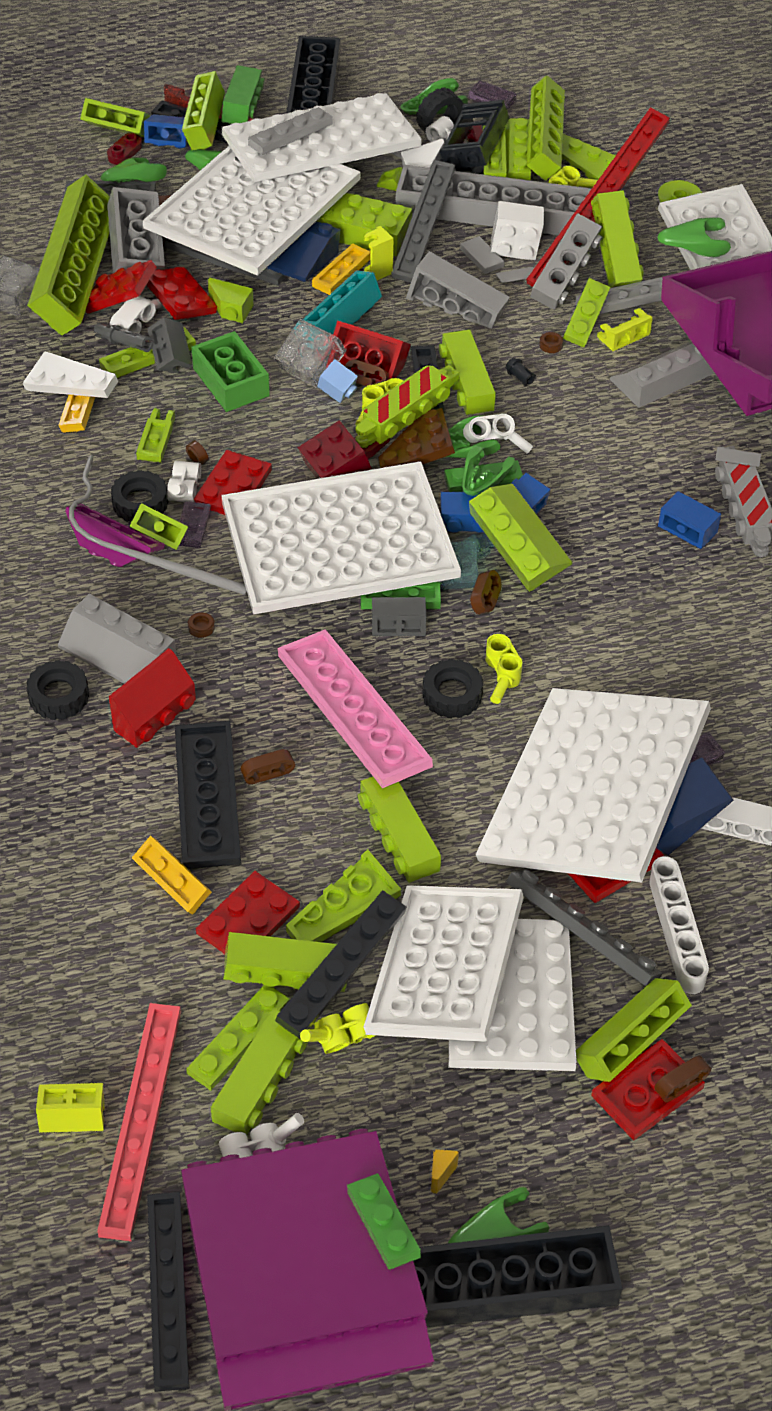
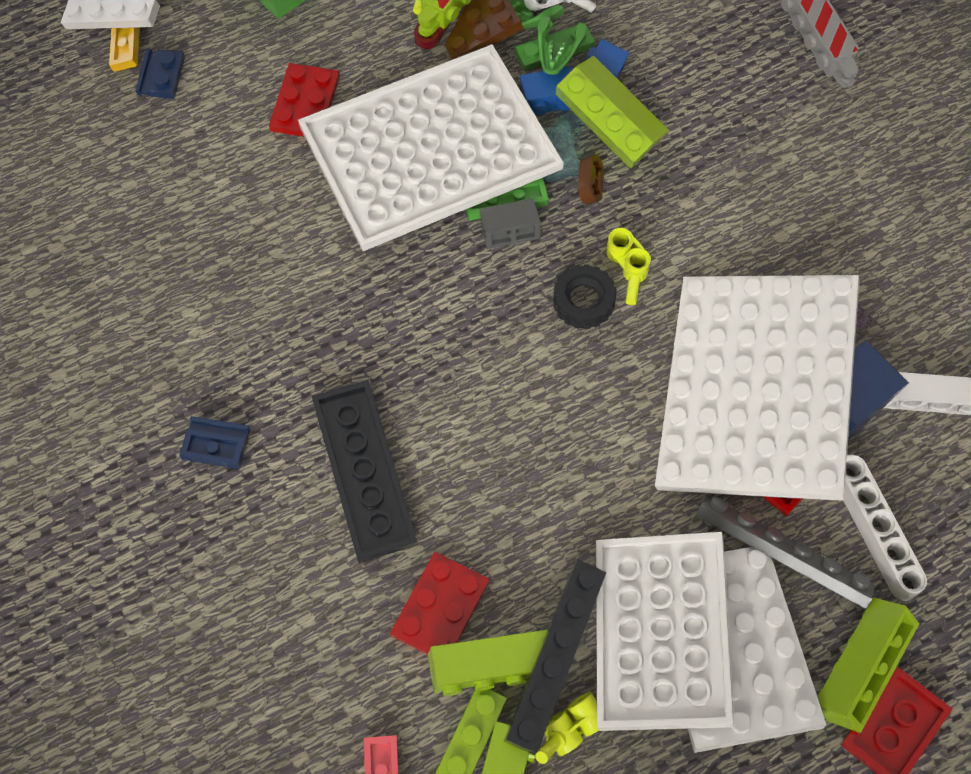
camera: 10 degrees left, 15 degrees up
(57, 707) = (163, 362): black tyre -> none
(76, 748) = (215, 442): none -> dark blue plate
(104, 440) = (160, 73): none -> dark blue plate
(111, 532) = (193, 187): magenta wedge -> none
(112, 639) = (229, 311): light grey slope -> none
(138, 481) = (209, 115): black tyre -> none
(151, 699) = (281, 373): red slope -> none
(155, 436) = (212, 60): lime hinge -> none
(158, 526) = (241, 167): lime slope -> none
(167, 564) = (272, 212): light grey piece -> none
(171, 875) = (349, 575): yellow plate -> none
(184, 482) = (254, 107): white beam -> none
(196, 518) = (274, 156): plate -> none
(197, 452) = (259, 72): reddish brown tile -> none
(201, 625) = (310, 270): reddish brown tile -> none
(267, 766) = (418, 425): reddish brown beam -> none
(334, 453) = (402, 51): dark red brick -> none
(343, 901) = (536, 569): lime wing -> none
(355, 708) = (494, 344): bright pink plate -> none
(400, 829) = (570, 469): lime brick -> none
(682, 1078) = (935, 716): reddish brown beam -> none
(691, 519) = (772, 61): blue brick -> none

